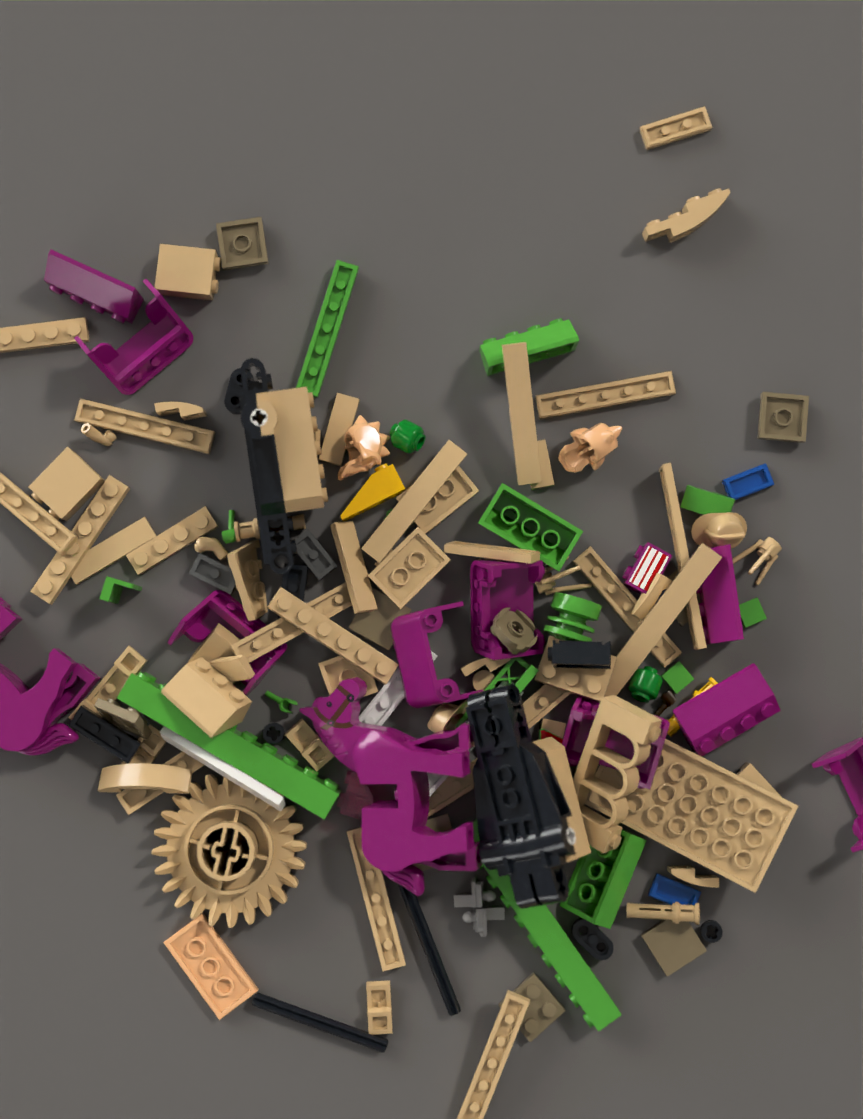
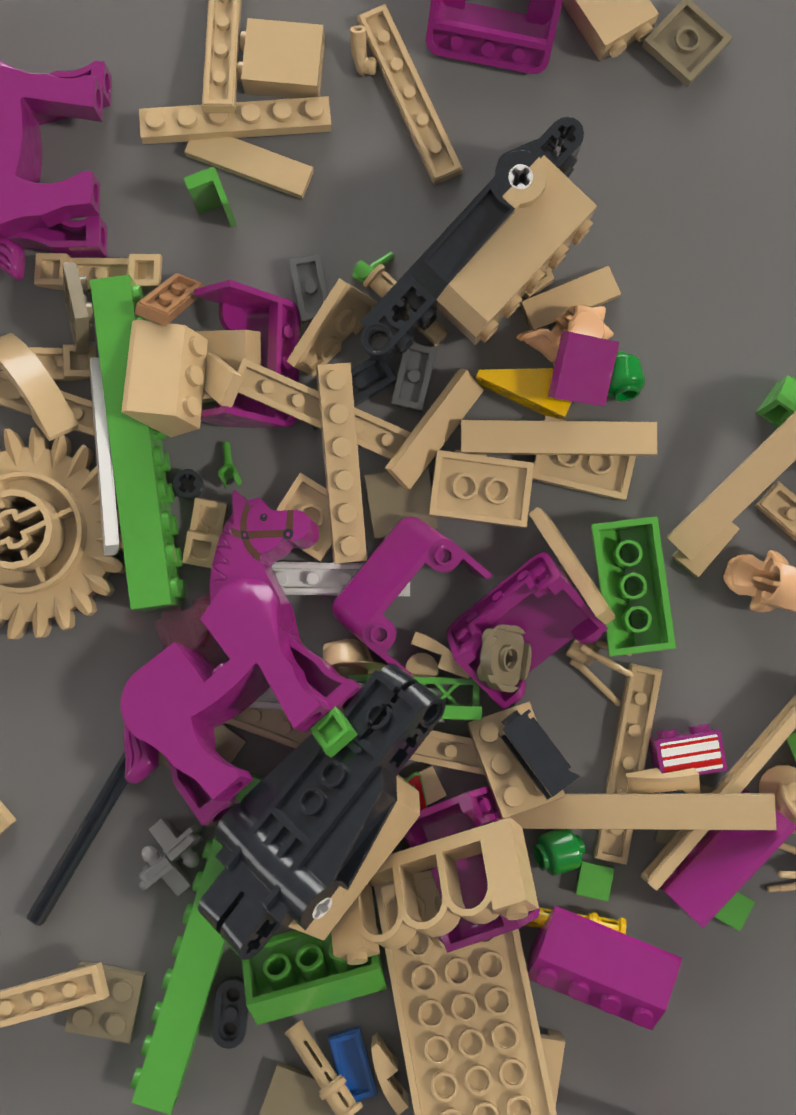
camera: 50 degrees right, 0 degrees up
(105, 734) = (46, 304): black tile -> none
(161, 660) = (168, 299): none -> medium nougat tile
(172, 540) = (310, 217): tan plate -> none
(186, 410) = (461, 121): tan slope -> none
(211, 544) = (337, 257): tan arm -> none
(328, 327) = (673, 200): bright green plate -> none
(377, 906) = (83, 747): tan plate -> none
(387, 458) = (583, 368): none -> magenta tile
(481, 757) = (333, 732): none -> bright green tile
(572, 617) = (571, 711): bright green wheel -> none
(668, 699) = (562, 890): dark brown hand -> none

